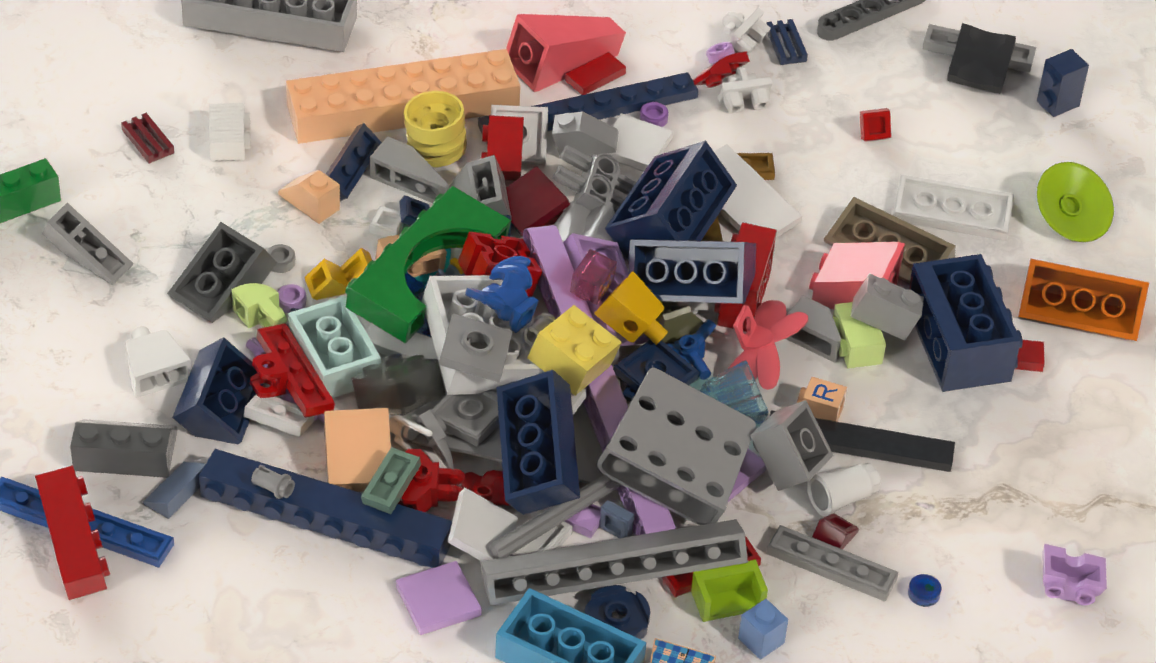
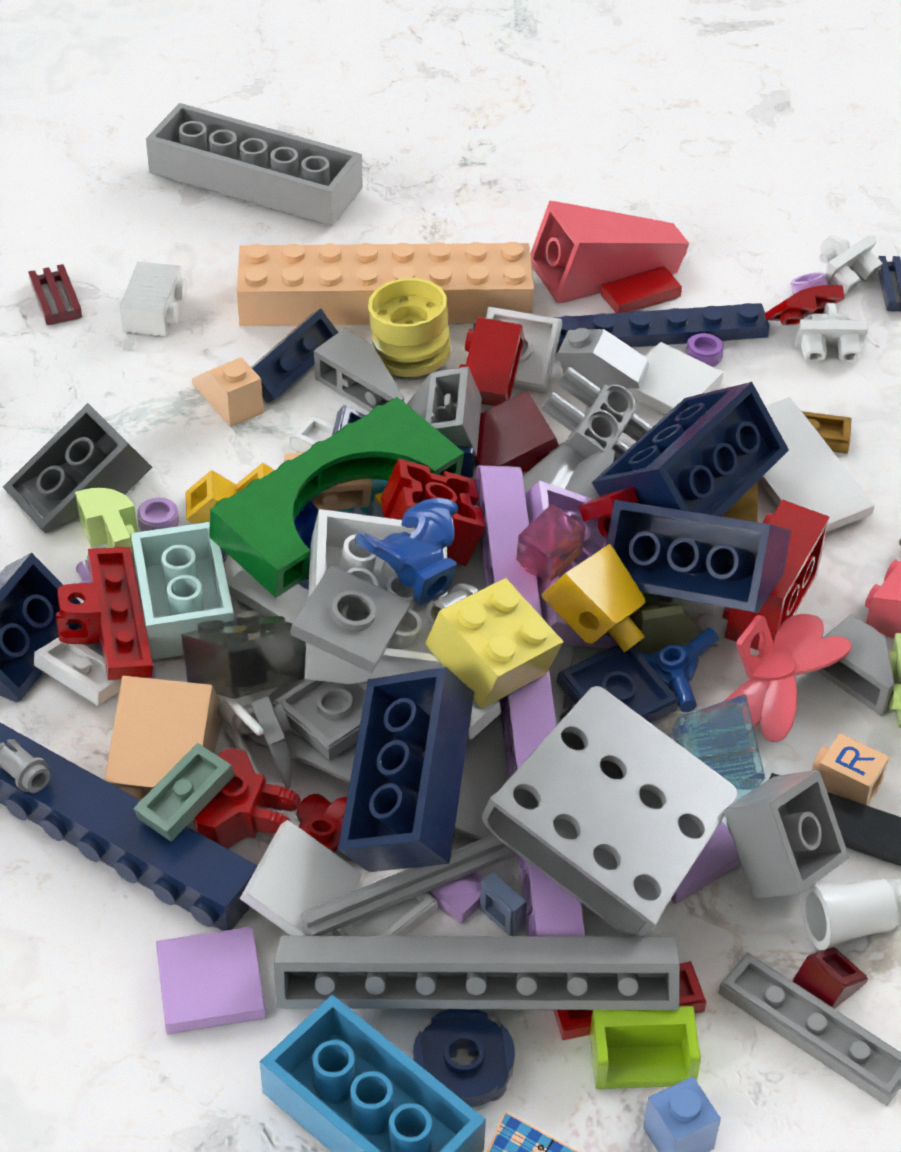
camera: 15 degrees right, 0 degrees up
(284, 256) = (166, 463): light grey tile -> none
(620, 246) = (603, 506): none -> red tile

